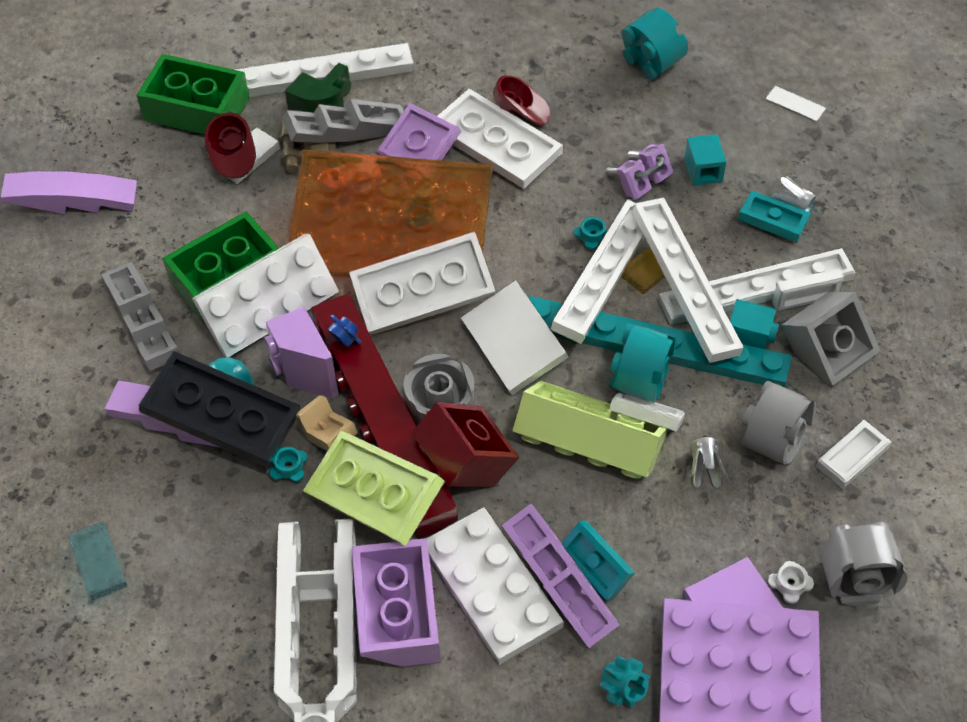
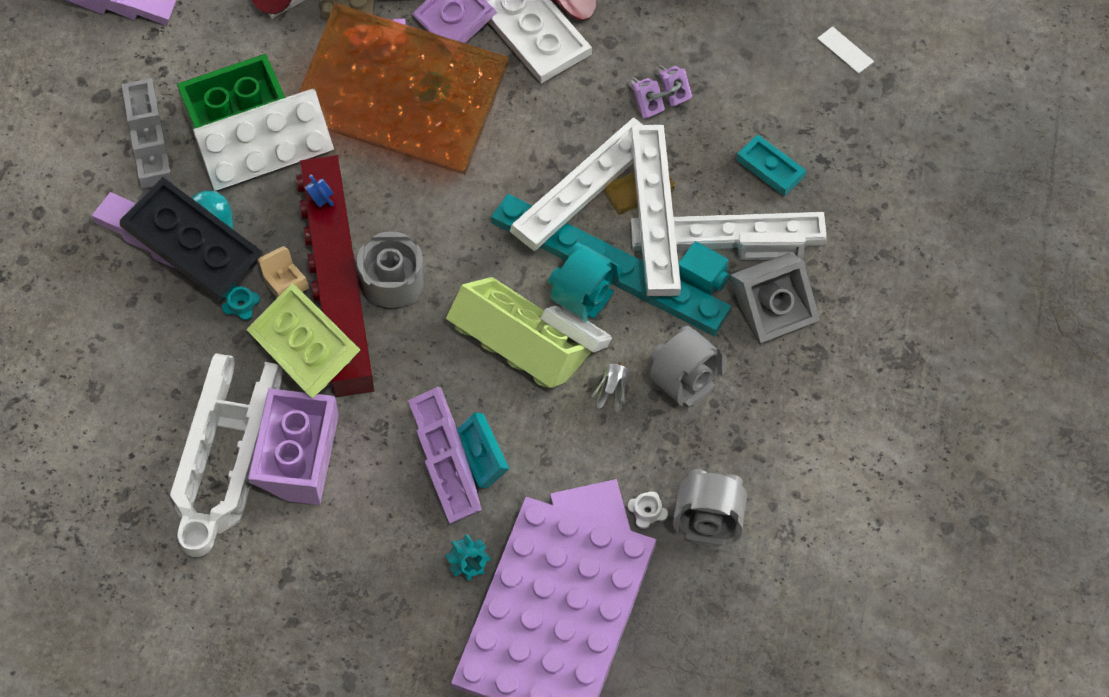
camera: 15 degrees right, 5 degrees up
(97, 561) = (55, 350): clear light blue tile -> none
(300, 353) = (275, 202): lavender slope -> none
(422, 283) = (409, 160): white plate -> none
(464, 445) = (396, 321): dark red brick -> none
(492, 586) = (385, 450): white plate -> none
(514, 337) = (478, 230): white tile -> none
(591, 232) = (585, 137): teal plate -> none
(705, 159) = (725, 92): teal brick -> none
(800, 198) = (803, 153): flat silver piece -> none
(853, 454) = (752, 410): white tile -> none

